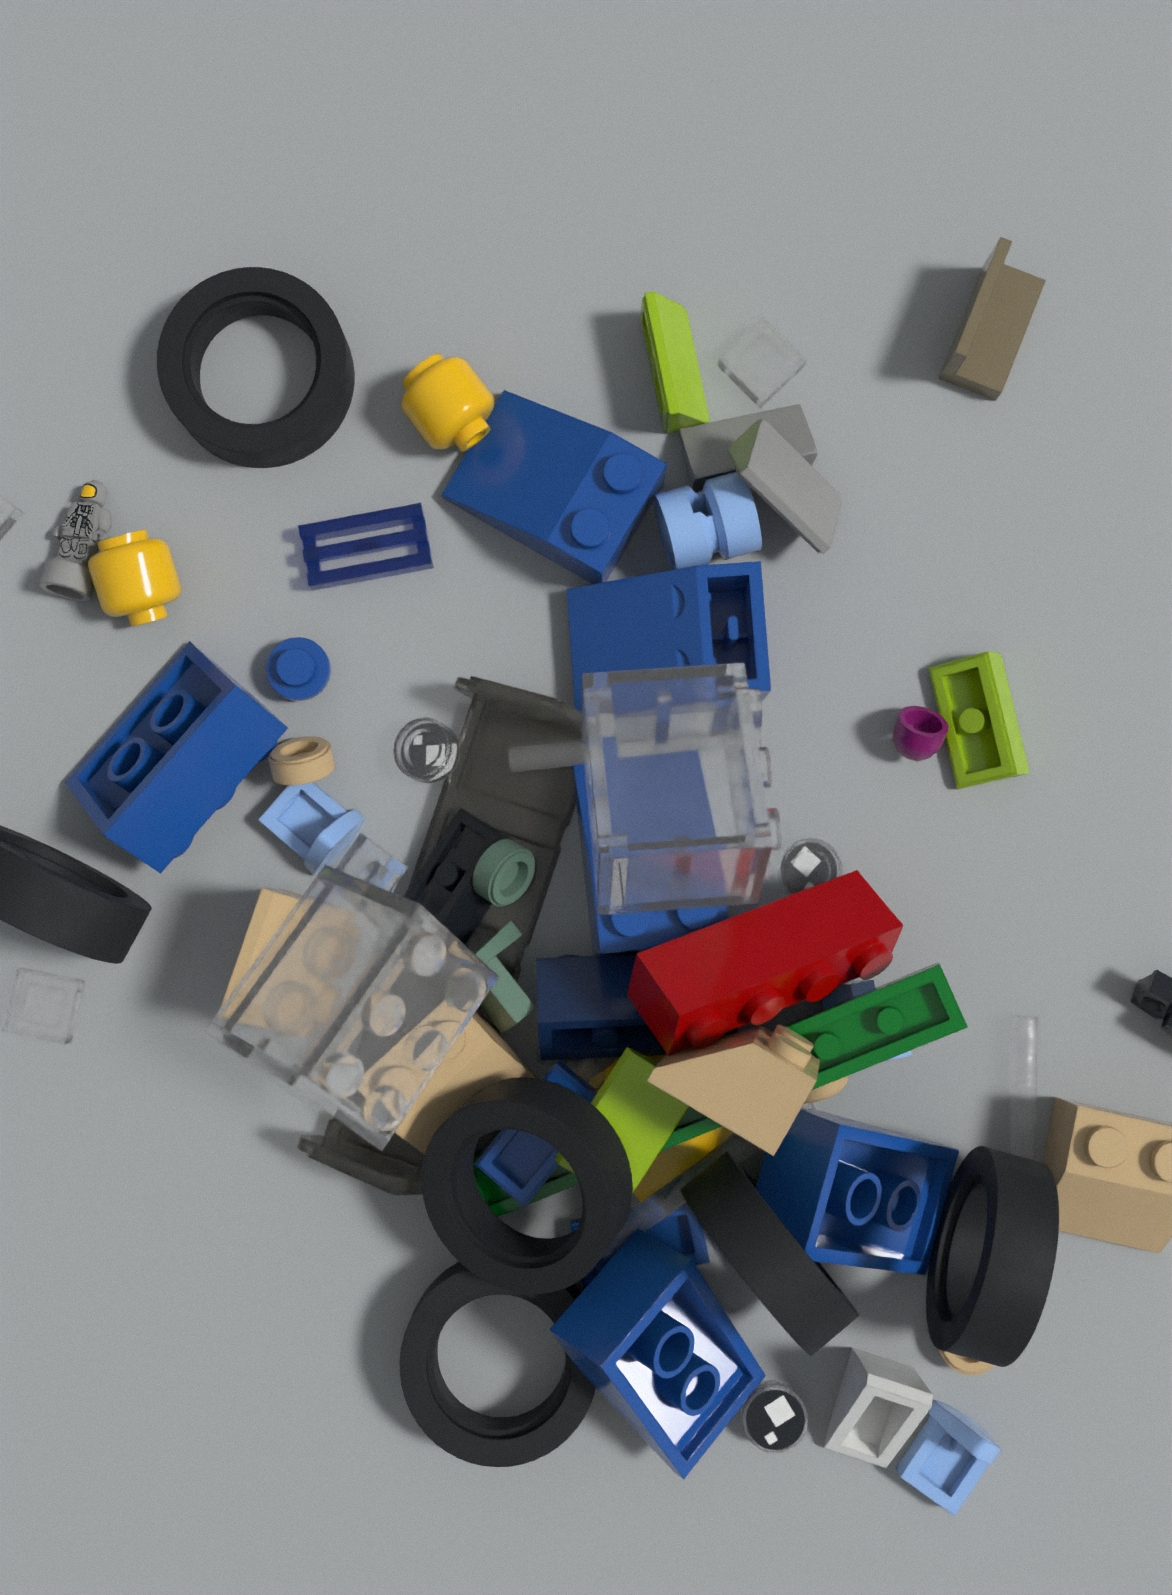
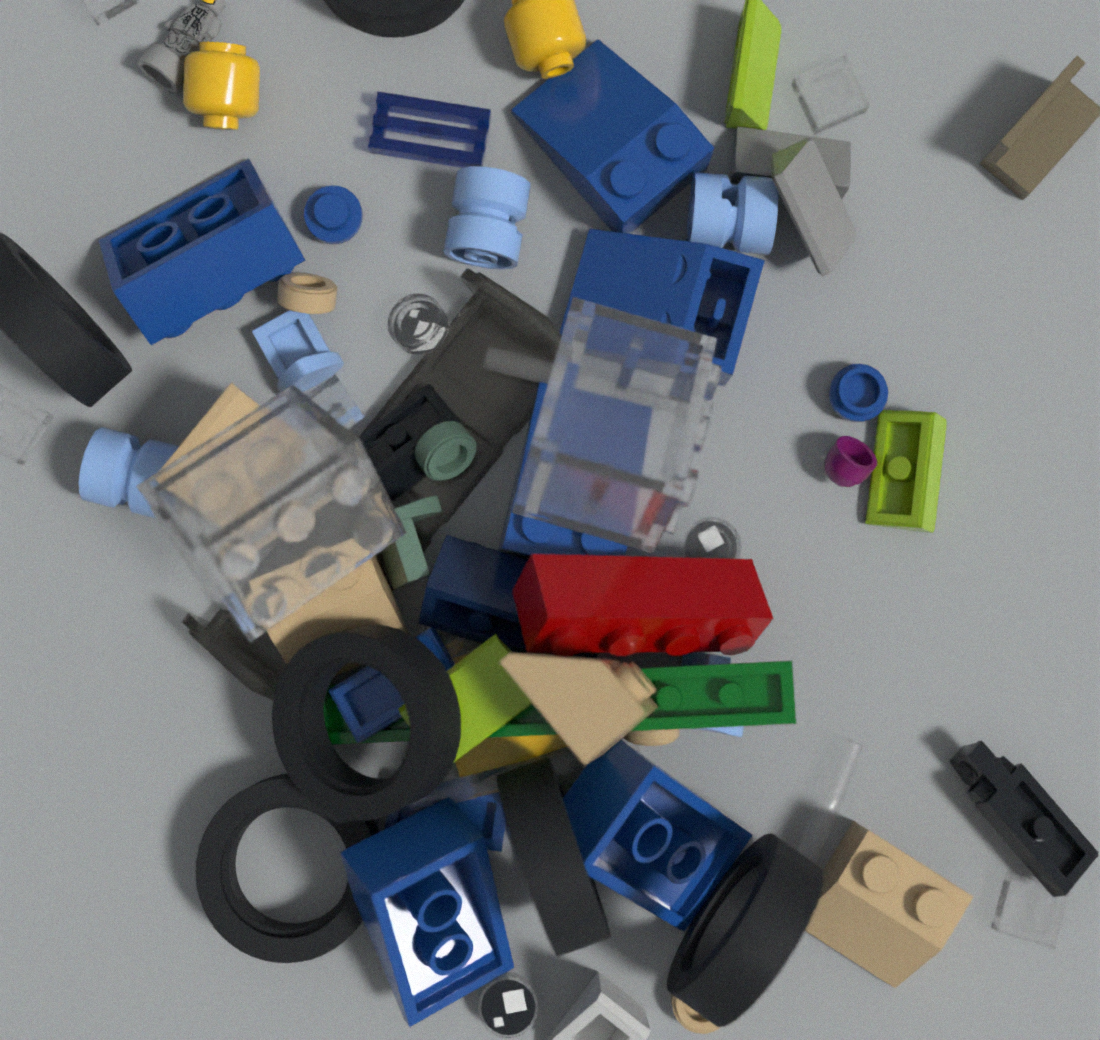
camera: 15 degrees right, 0 degrees up
(177, 1011) = (116, 465): none -> light blue wheel
(457, 607) = (488, 208): none -> light blue wheel
(901, 658) = (858, 393): none -> blue plate

